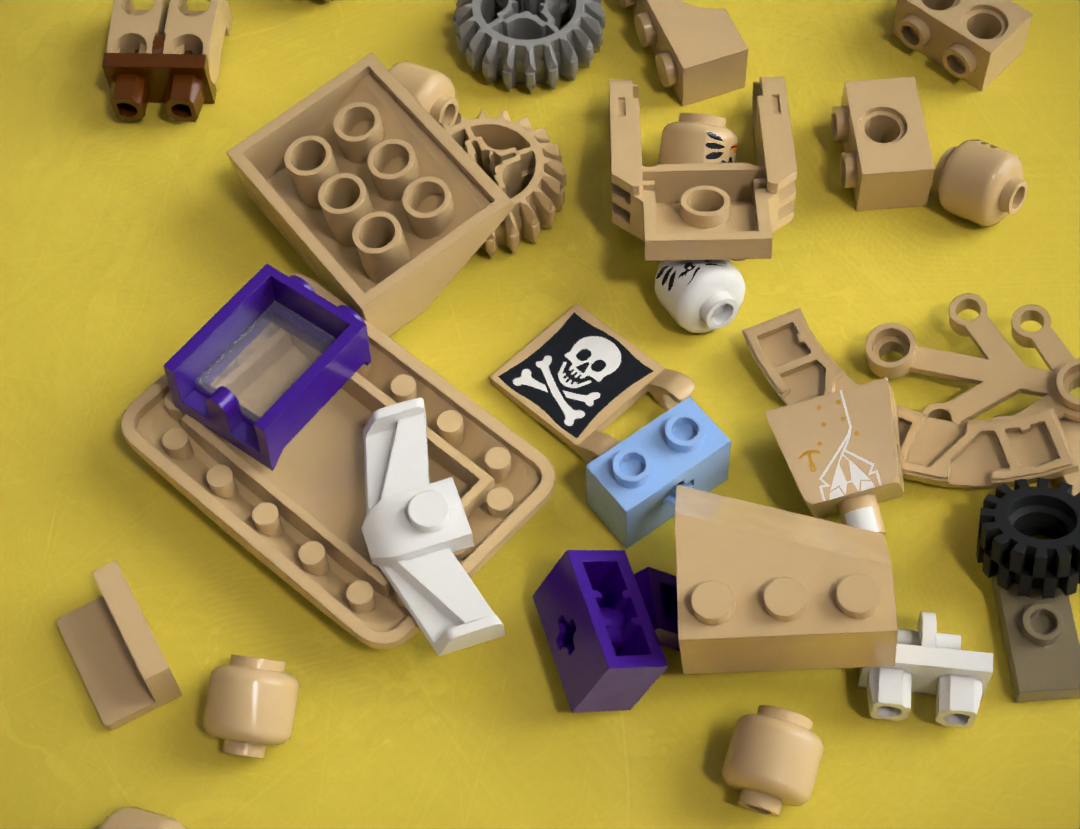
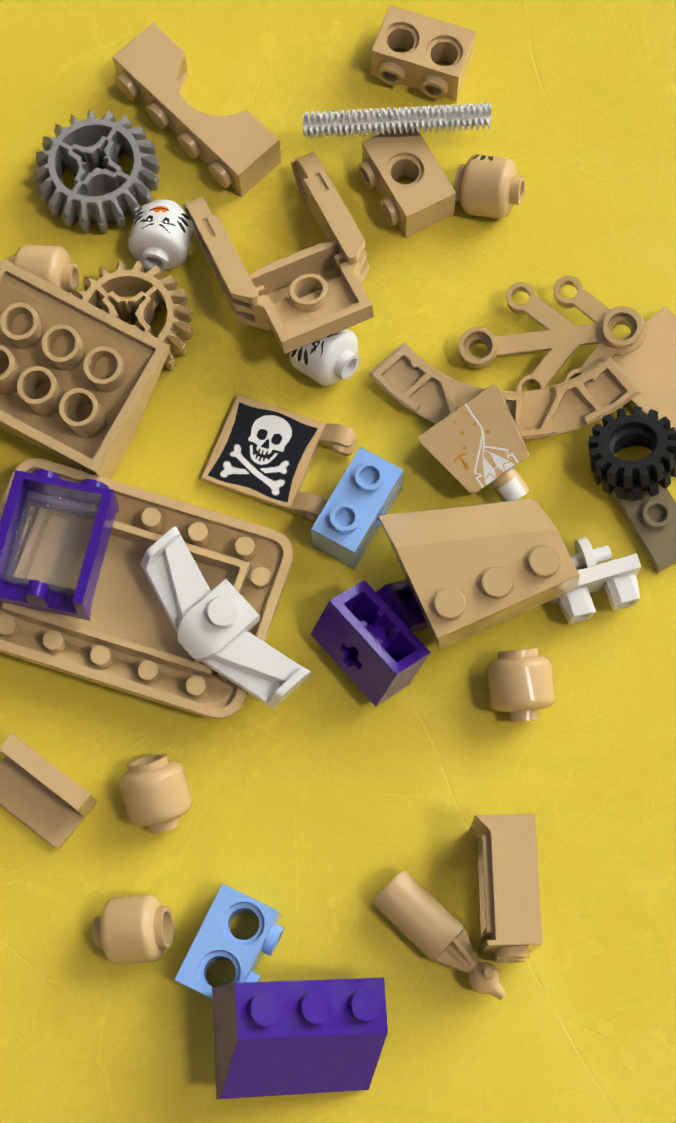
camera: 25 degrees left, 15 degrees up
(568, 104) = (161, 235): none -> white head
(698, 140) = (275, 236): tan head -> none
(896, 69) = (395, 119): none -> white axle

